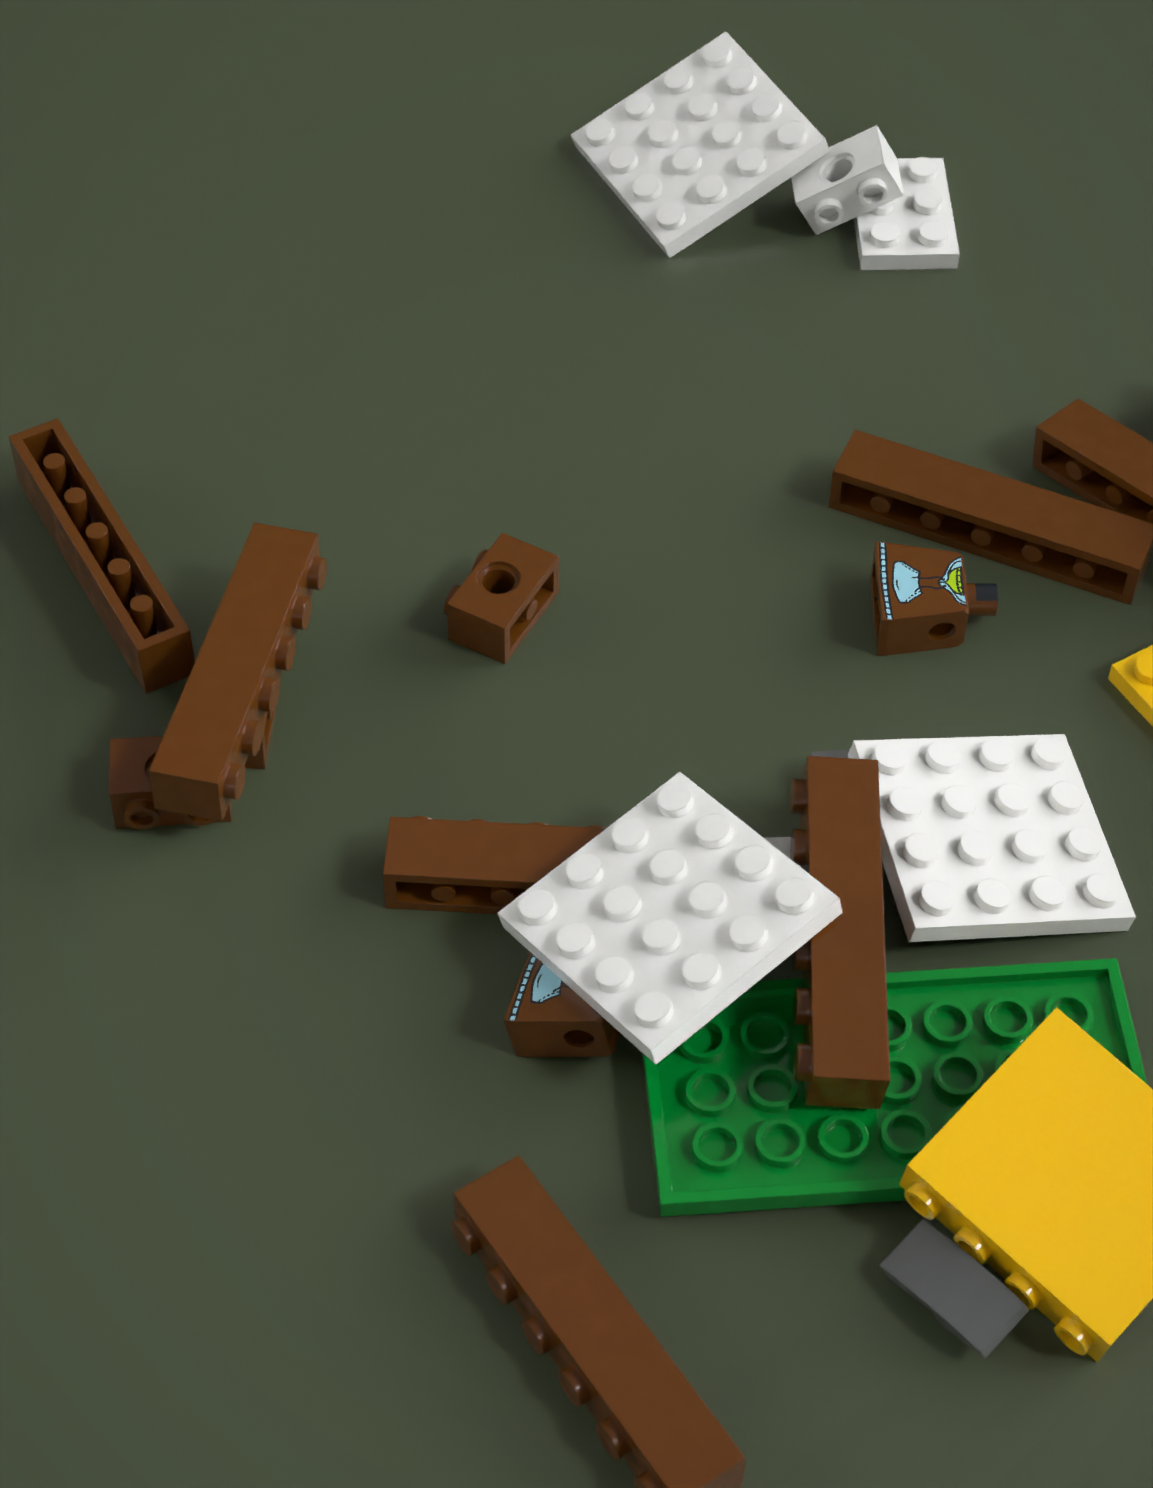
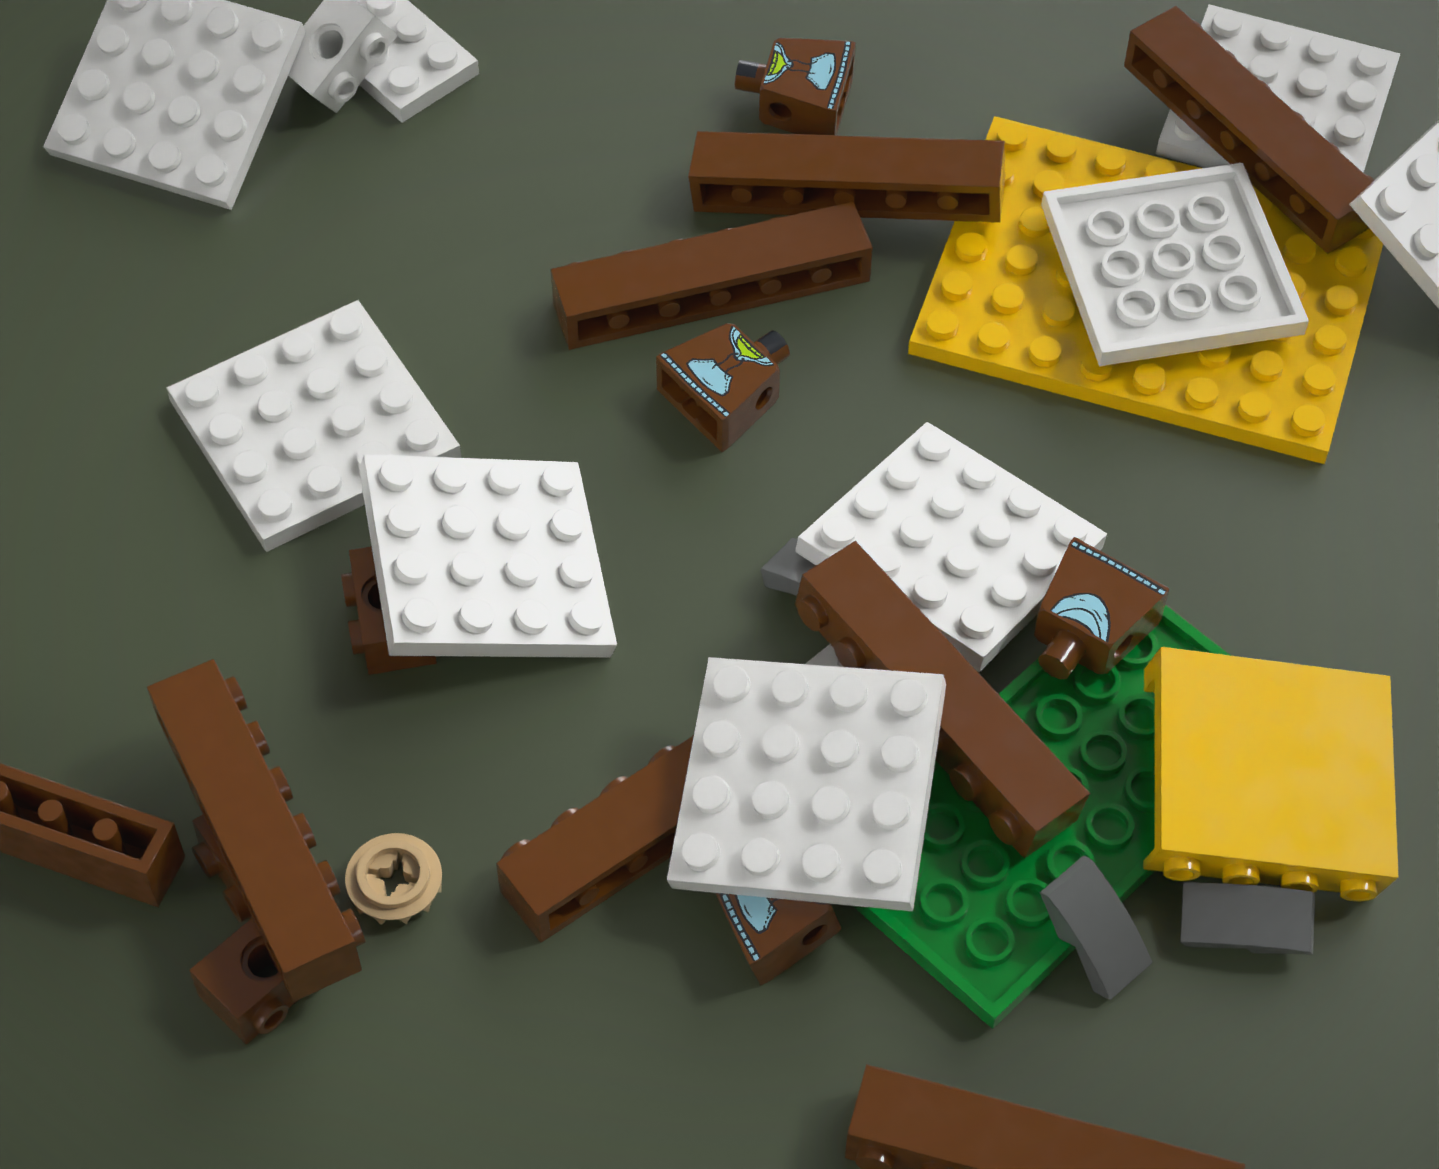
camera: 40 degrees left, 5 degrees up
(326, 767) = (379, 859): none -> tan gear
(578, 440) = (298, 417): none -> white plate
(601, 605) = (485, 558): none -> white plate
(809, 1195) = (1098, 925): none -> dark grey slope
(1047, 958) = (1095, 611): none -> reddish brown torso

